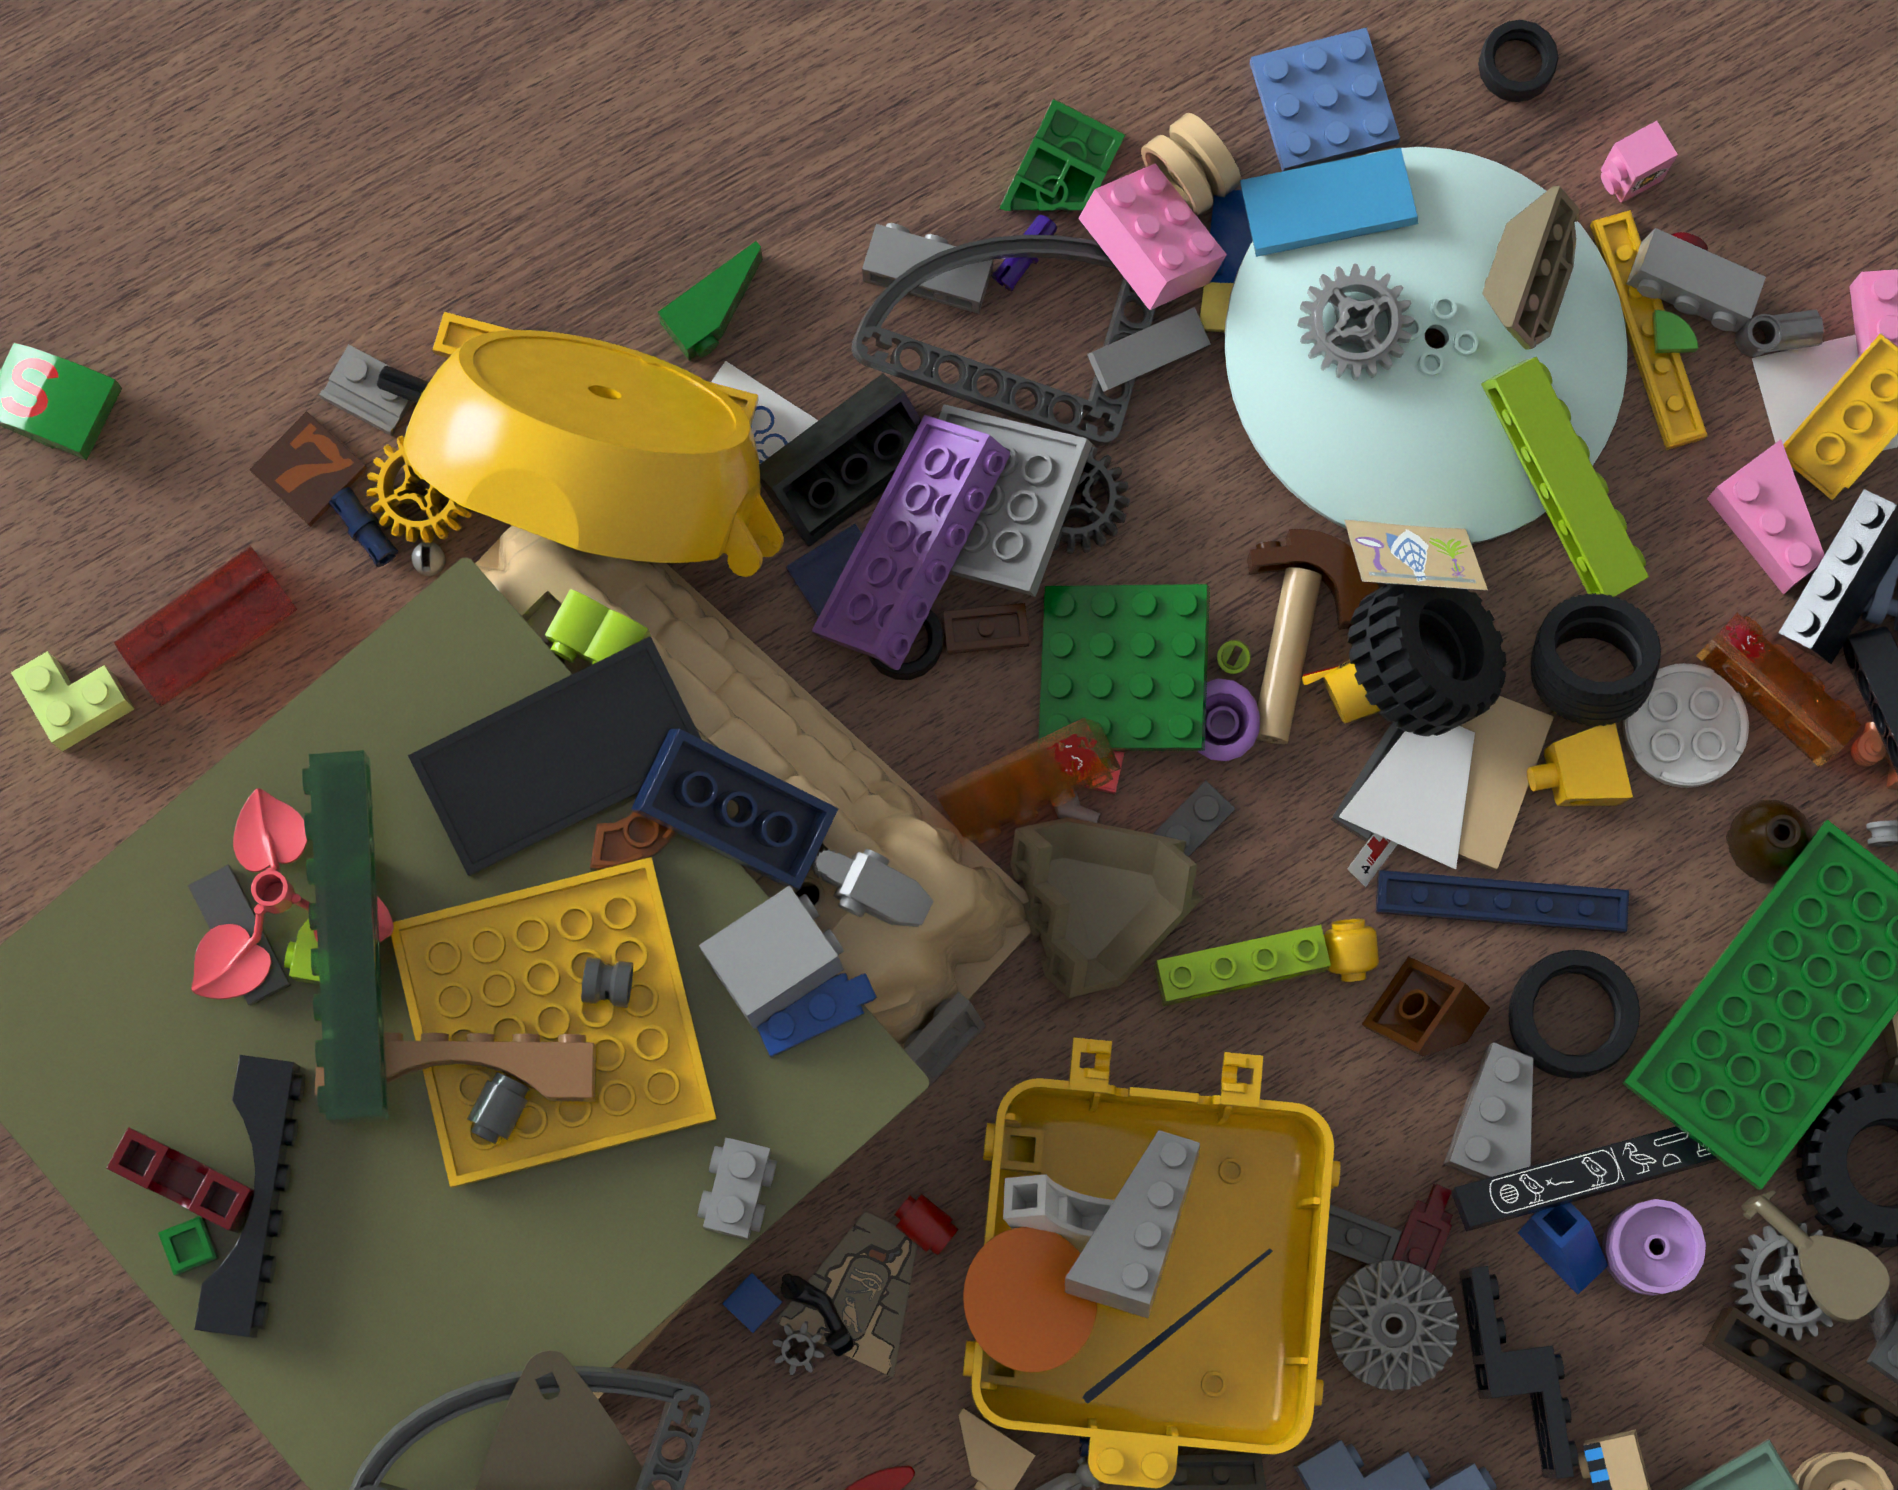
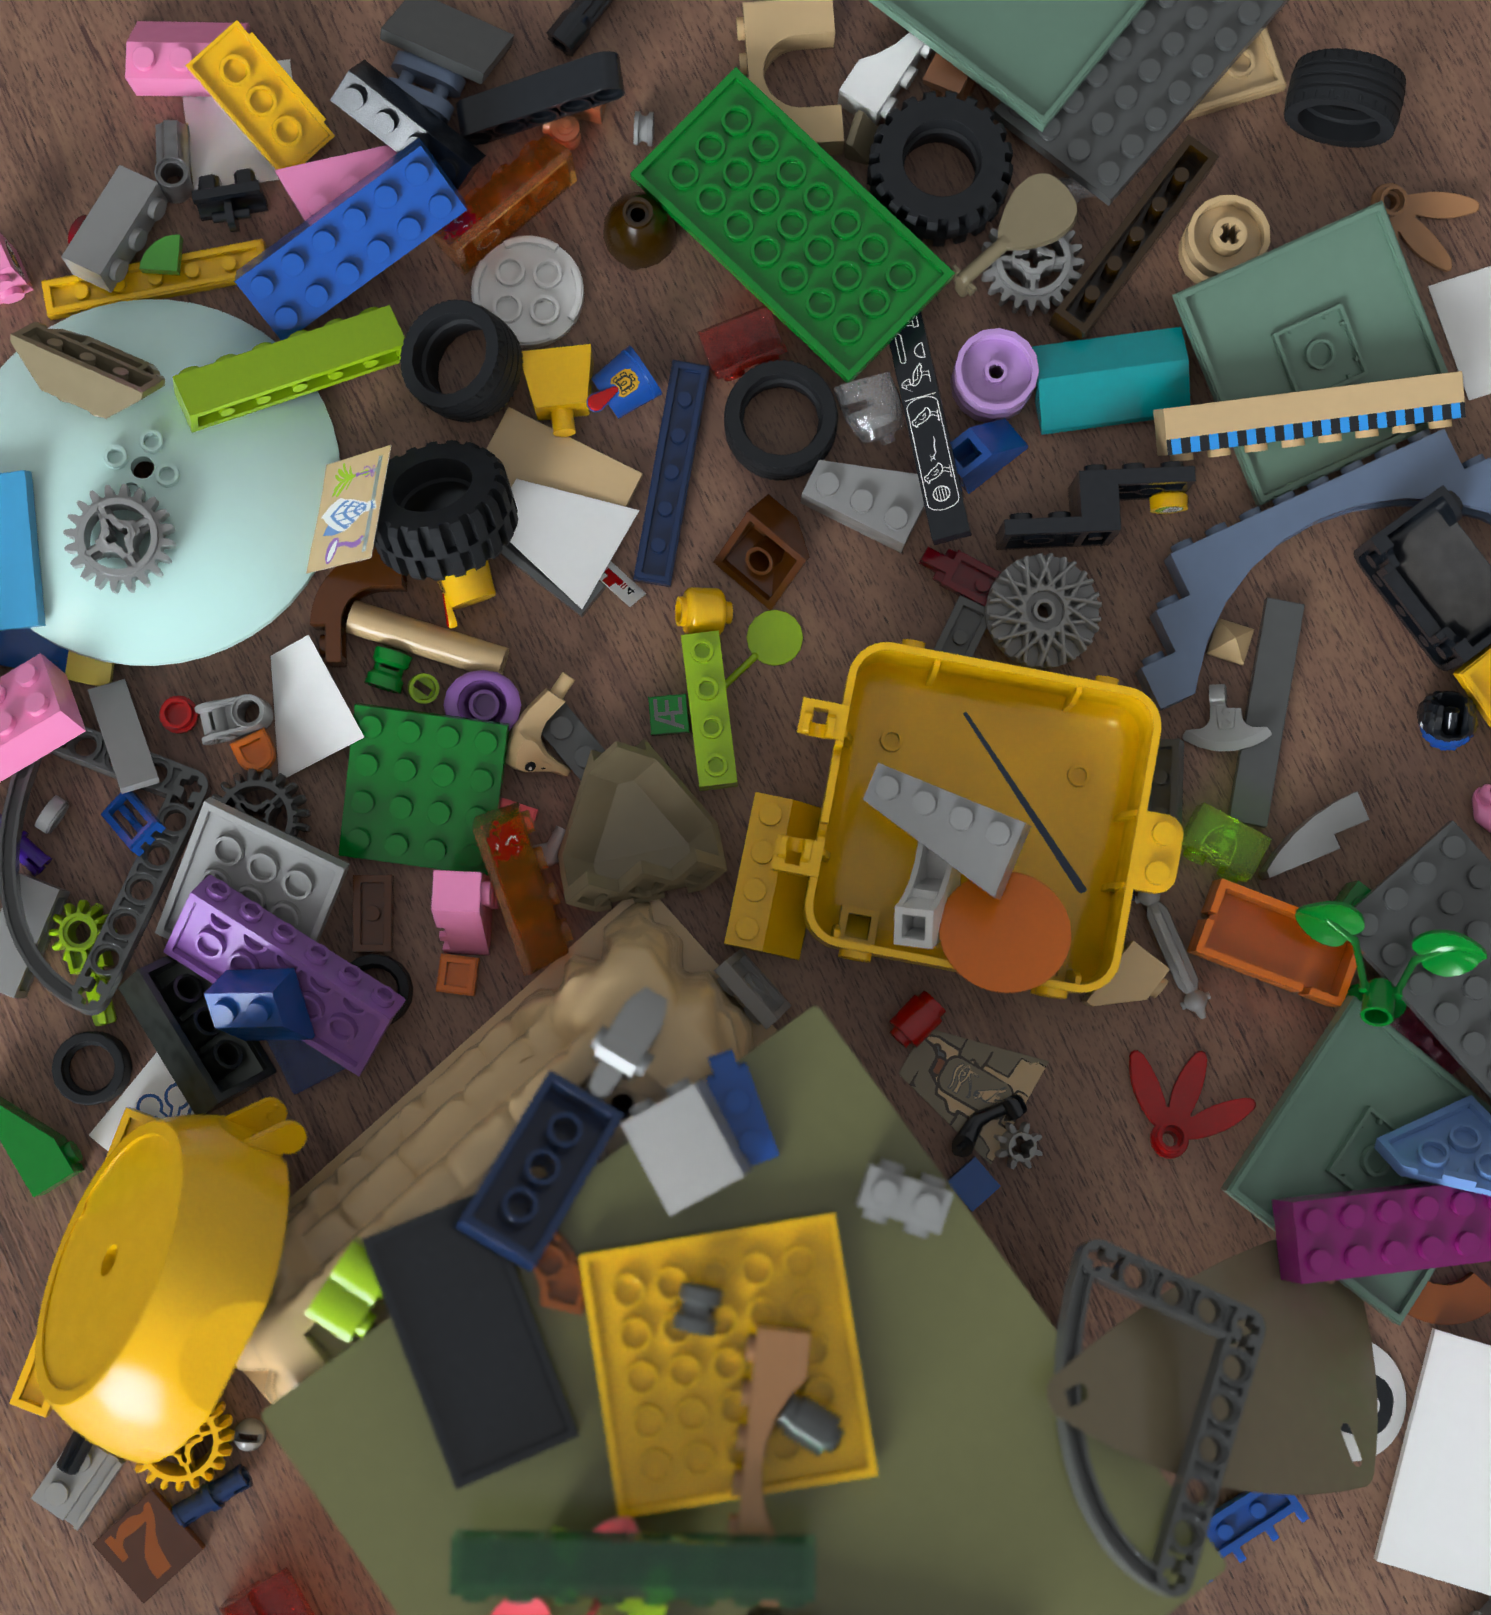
camera: 85 degrees left, 5 degrees up
(796, 325) = (62, 1062): none -> black tyre
(877, 519) = (260, 1005): none -> blue slope
(916, 327) = (77, 952): none -> lime gear
(929, 725) = (457, 974): none -> orange tile
(998, 722) = (464, 909): none -> bright pink wedge
(1038, 1044) = (769, 903): none -> yellow slope
(1048, 382) = (144, 832): none -> blue tile
(1058, 285) = (52, 814): none -> light grey tile
(1147, 487) = (255, 751): none -> orange tile
(1178, 404) = (178, 714): none -> red plate
(1179, 453) = (226, 720): none -> light grey piece
(1183, 770) = (525, 744): none -> tan animal
(1198, 537) = (308, 709): none -> white sticker
(1233, 922) = (668, 715): none -> green tile
(1240, 615) = (386, 678): none -> green wheel
(1329, 1030) = (772, 639): none -> lime piece
(1534, 1460) = (1168, 502): none -> yellow tile
(1592, 837) = (623, 385): none -> blue hat
(1599, 1113) = (872, 407): none -> clear helmet
(1655, 963) = (741, 343): none -> clear red bracket
(1666, 1381) = (1110, 379): none -> teal slope
(1712, 528) = (351, 240): none -> blue brick
(1741, 396) = (230, 201): none -> black hips

